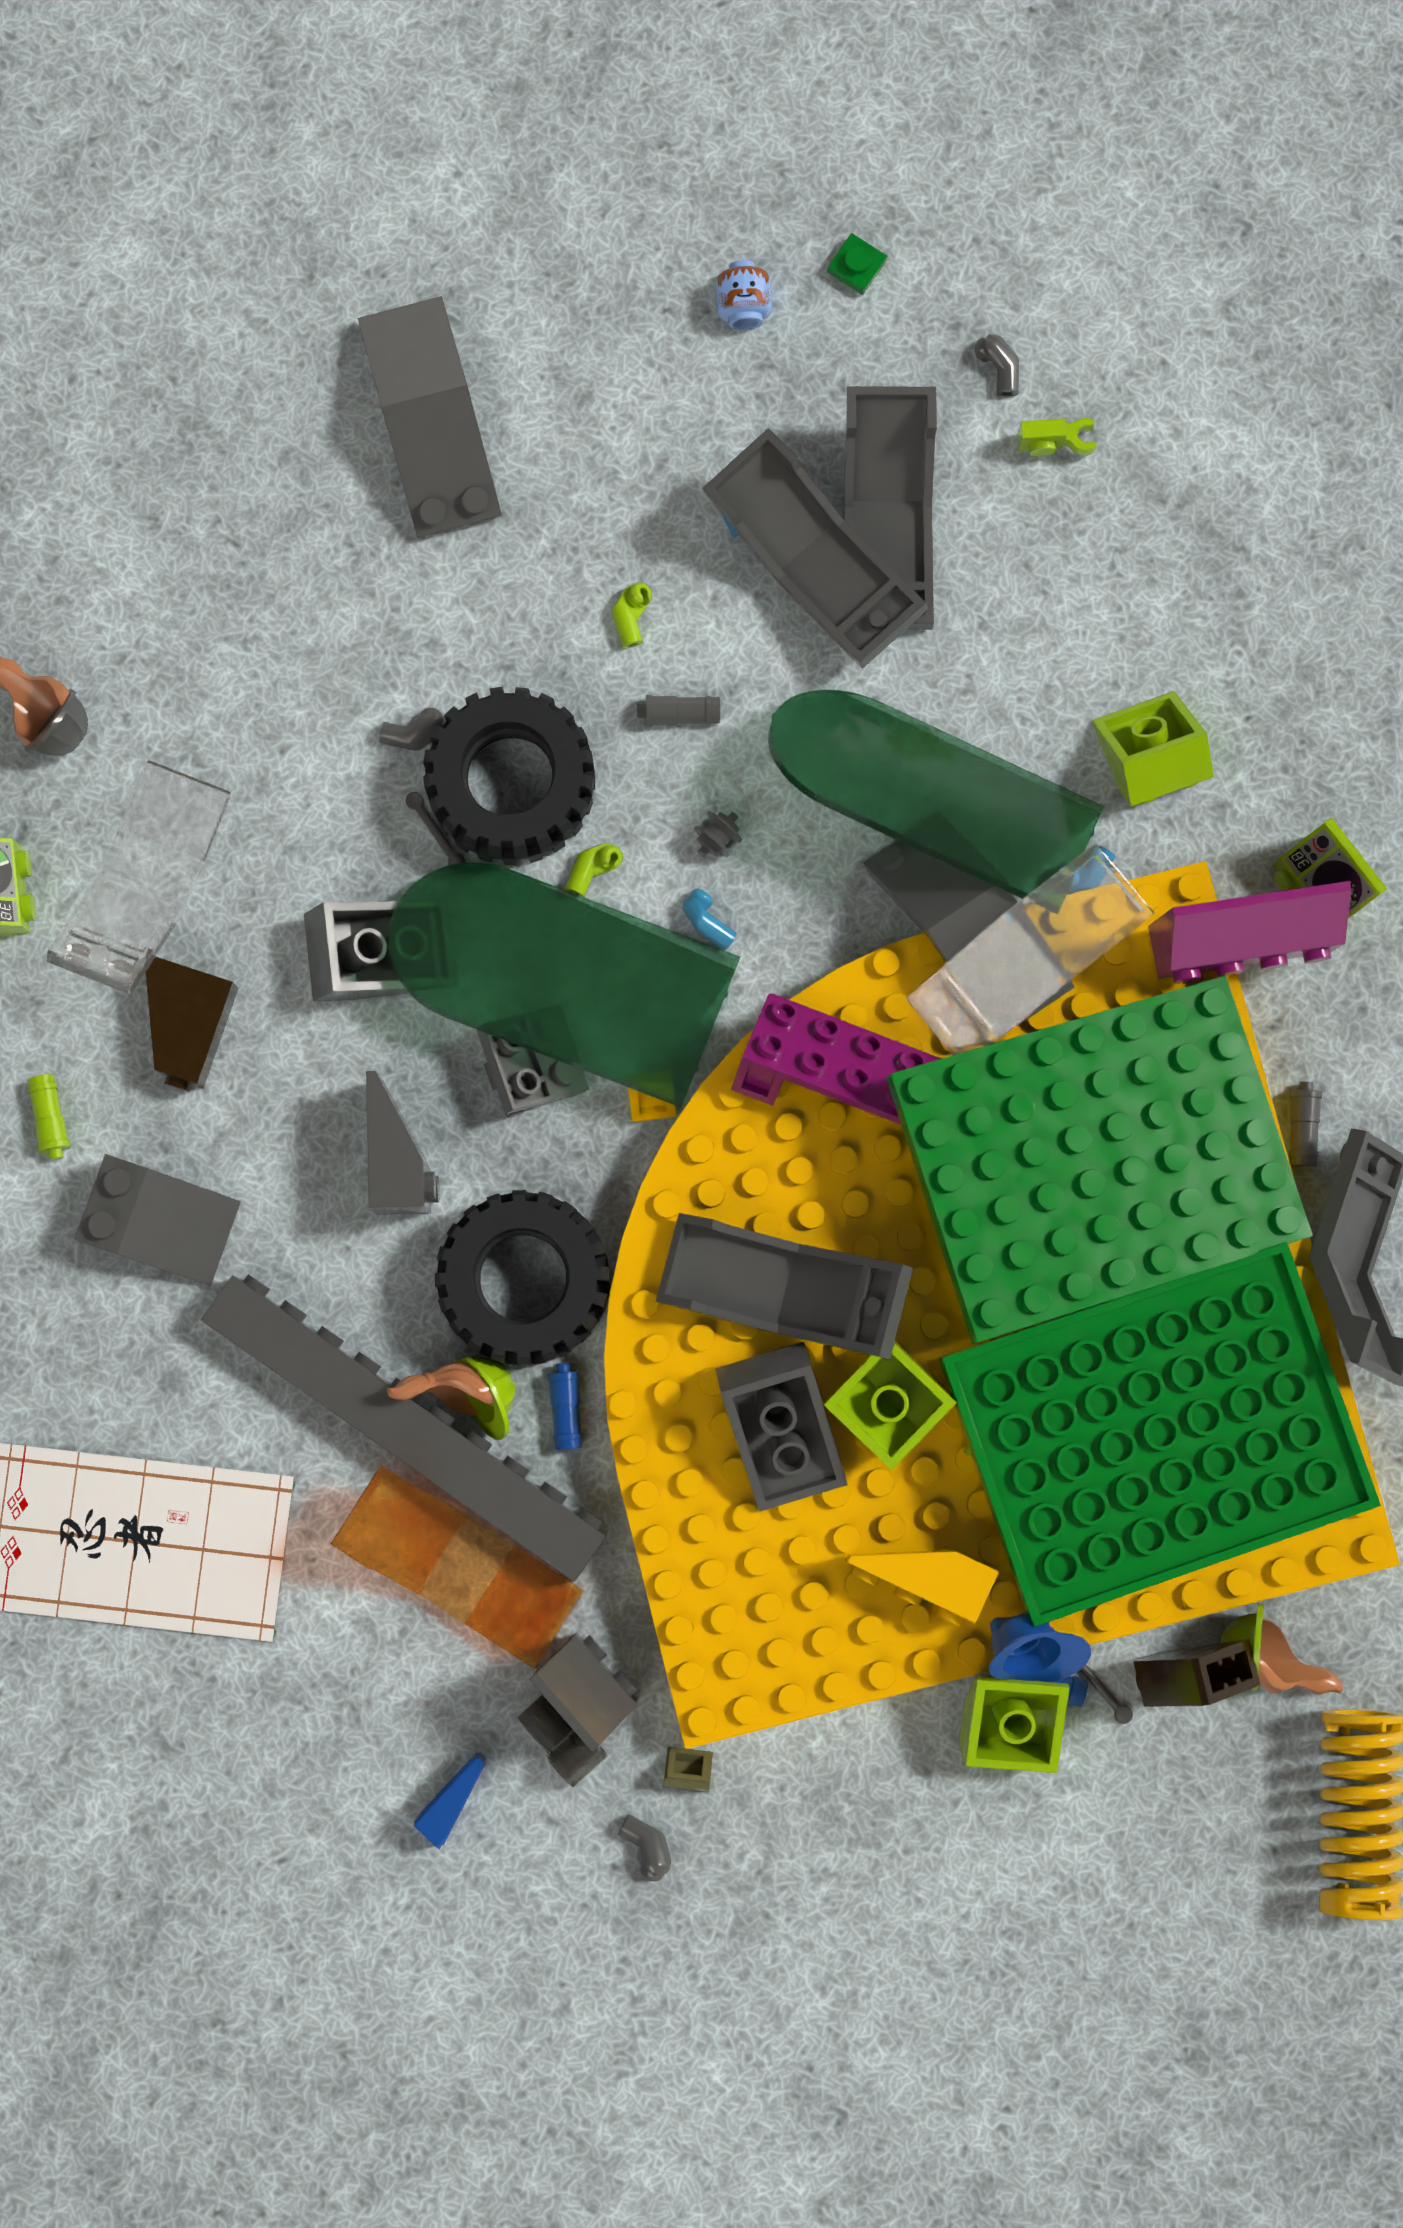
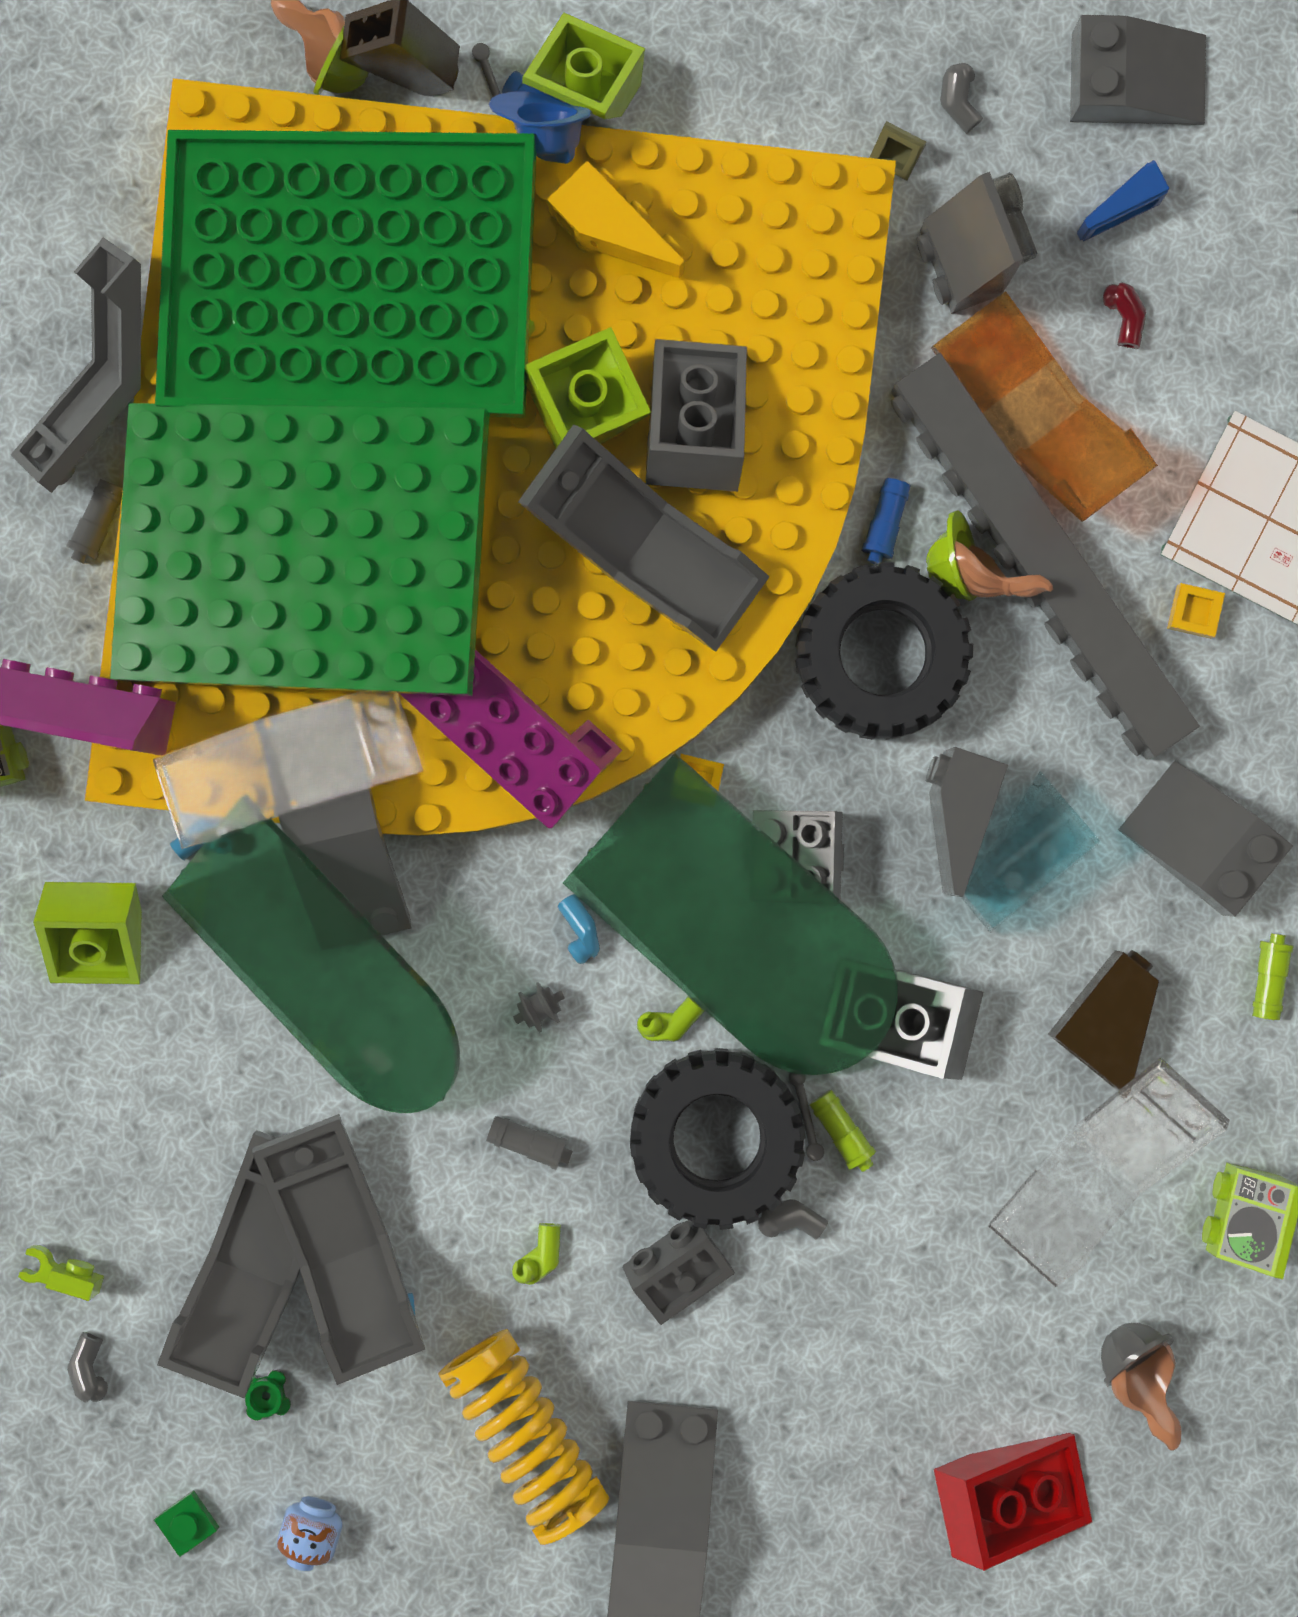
camera: 150 degrees left, 5 degrees up
(120, 558) = (1012, 1499): none -> red slope
(241, 1433) = (1196, 610): none -> yellow plate
(318, 1140) = (1029, 854): none -> clear light blue wedge
(395, 827) = (843, 1131): none -> lime piece
(408, 1701) = (1131, 310): none -> dark red arm
(483, 1935) = (1136, 72): none -> dark grey slope
(501, 645) = (676, 1270): none -> dark grey bracket
(638, 507) = (582, 1494): none -> yellow piece
(817, 397) = (277, 1403): none -> green plate

